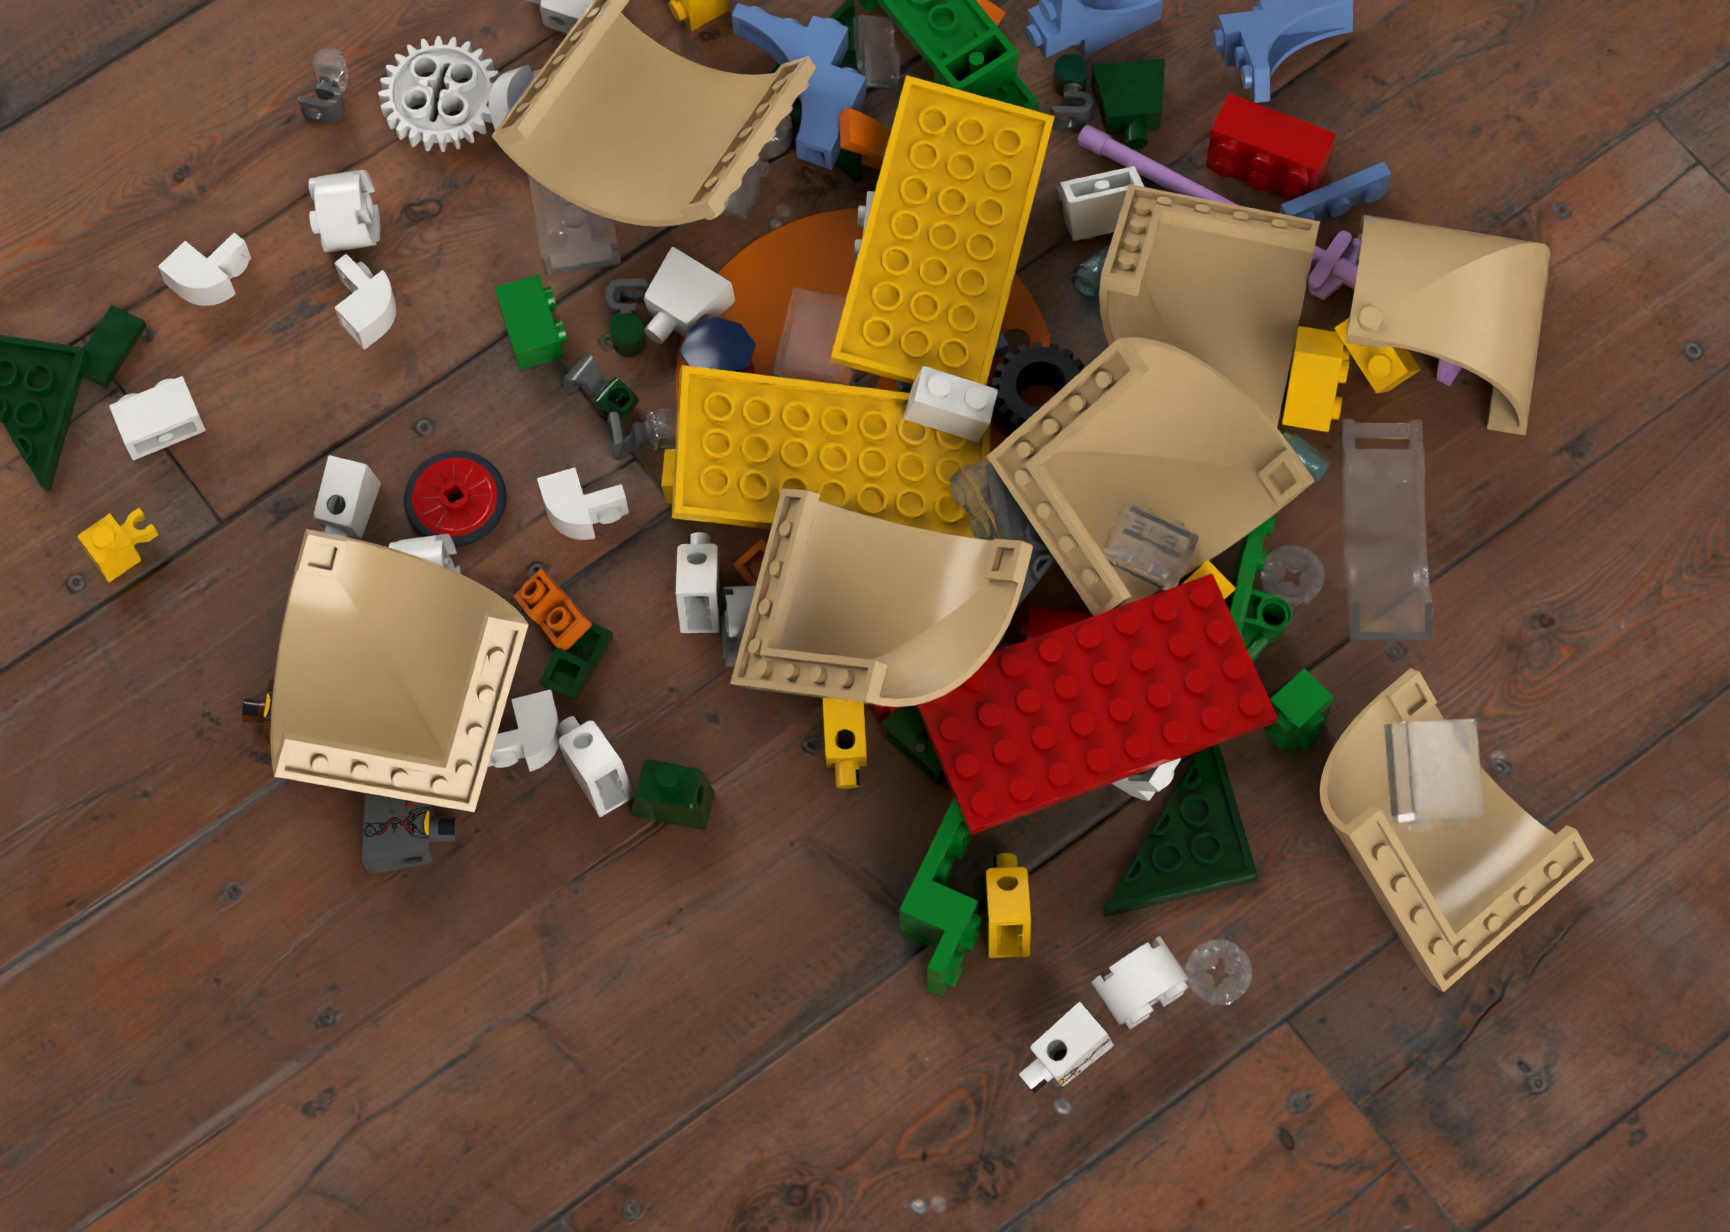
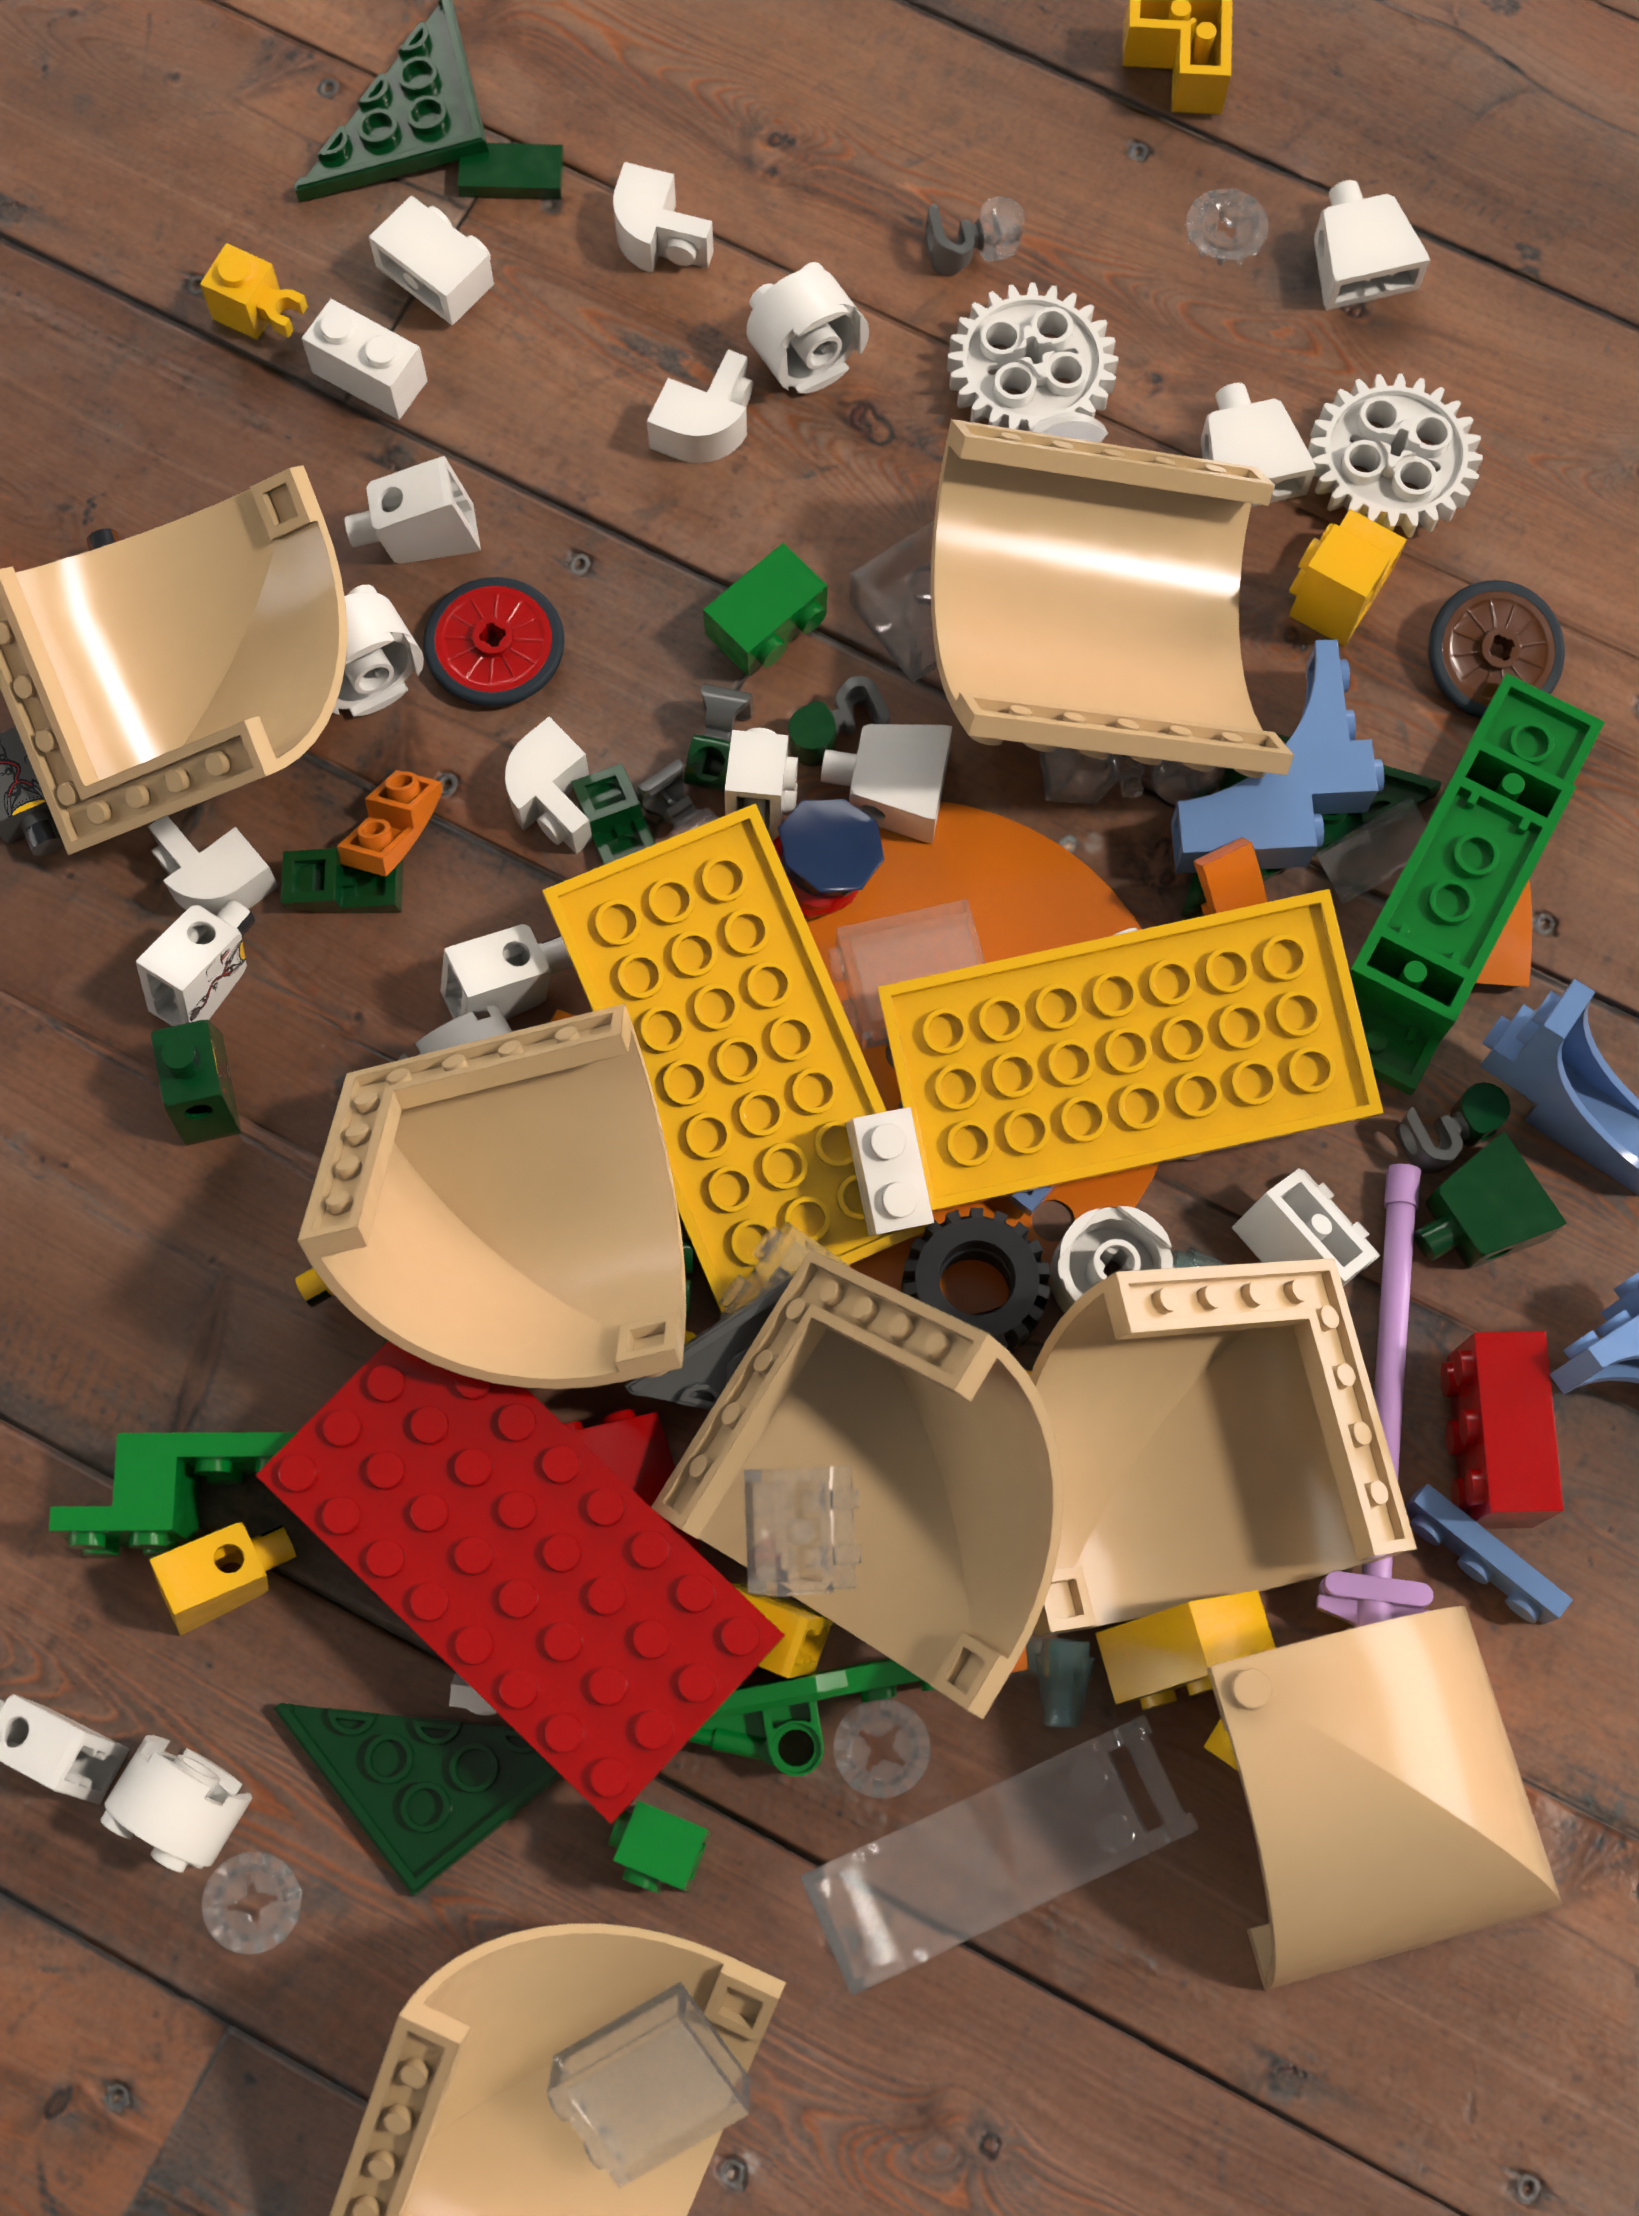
camera: 60 degrees right, 5 degrees up
(207, 490) = (365, 359): none -> white brick
(639, 477) = (613, 813): none -> dark green slope
(651, 372) = (761, 775): none -> white brick
(1067, 313) = (1101, 1236): none -> white brick

